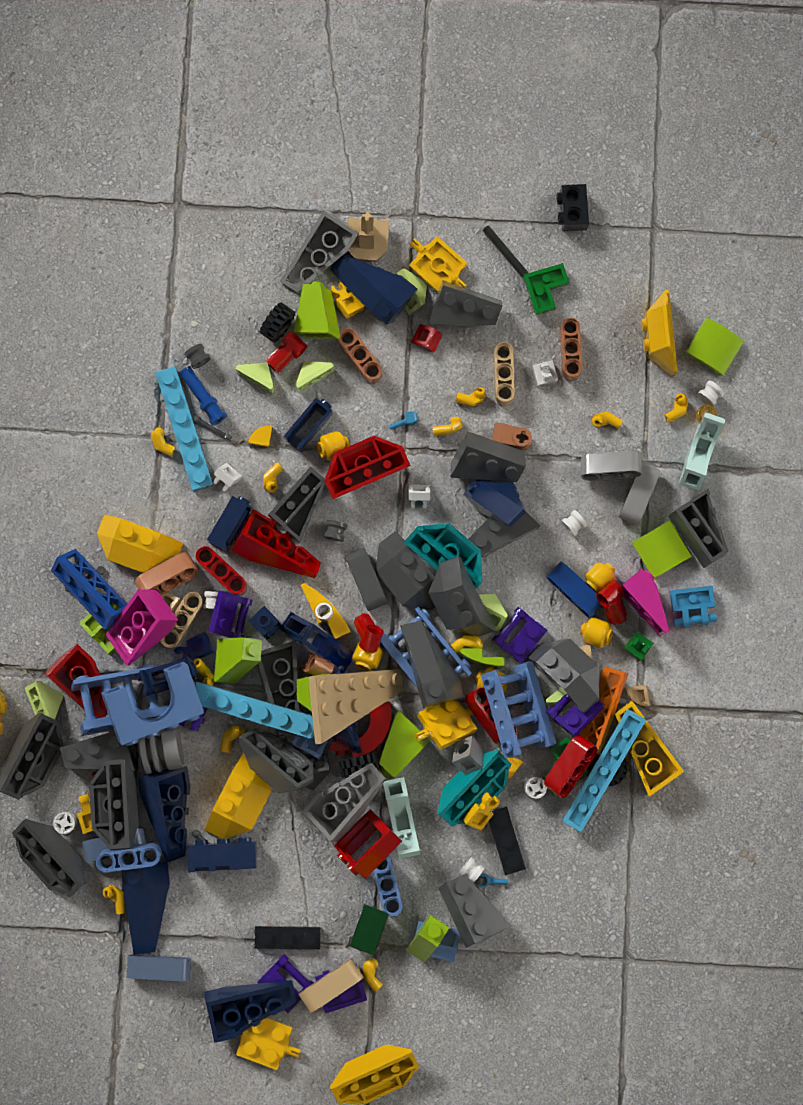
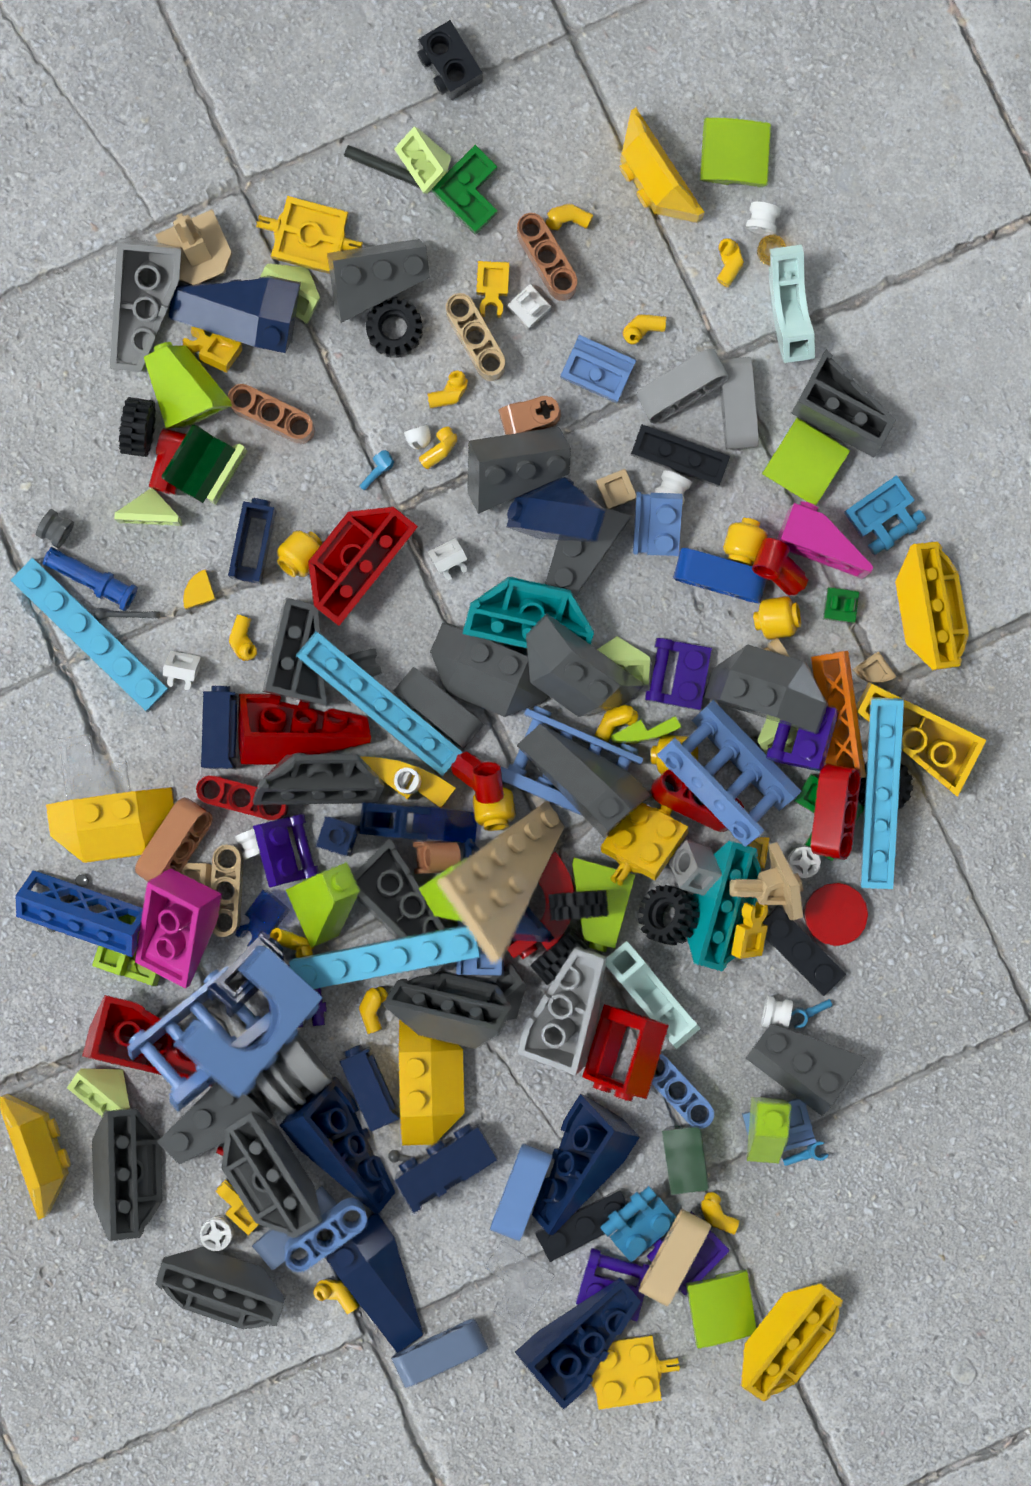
camera: 30 degrees left, 5 degrees up
(157, 438) = (67, 671): yellow arm -> none
(203, 783) = (369, 1087): none -> dark blue window
(259, 896) = (521, 1192): none -> medium blue beam
(272, 584) = (319, 780): none -> dark grey wedge
(301, 361) = (198, 463): none -> dark green panel
(313, 895) = (589, 1153): none -> dark blue wedge
(321, 958) = (642, 1229): none -> dark azure plate
(331, 557) = (378, 703): none -> medium azure plate
(343, 1033) = (721, 1309): none -> lime slope
(386, 739) = (578, 905): none -> black tyre
(427, 338) = (347, 341): red slope -> none
(430, 769) = (654, 911): none -> black tyre
(439, 415) = (418, 437): none -> white hinge
(443, 966) = (806, 1154): none -> dark azure hand
(459, 356) = (394, 346): none -> black tyre
(509, 791) = (774, 885): none -> tan piece
(528, 255) = (423, 159): none -> yellowish green slope
(530, 348) = (492, 282): none -> yellow plate
(538, 829) = (835, 914): none -> red tile
(540, 506) = (616, 489): none -> tan plate
(554, 539) = (657, 523): none -> medium blue plate
(566, 430) = (598, 369): none -> medium blue plate
(588, 506) = (680, 455): none -> black plate
(595, 330) = (567, 213): none -> yellow arm
(693, 674) = (932, 606): none -> yellow wedge

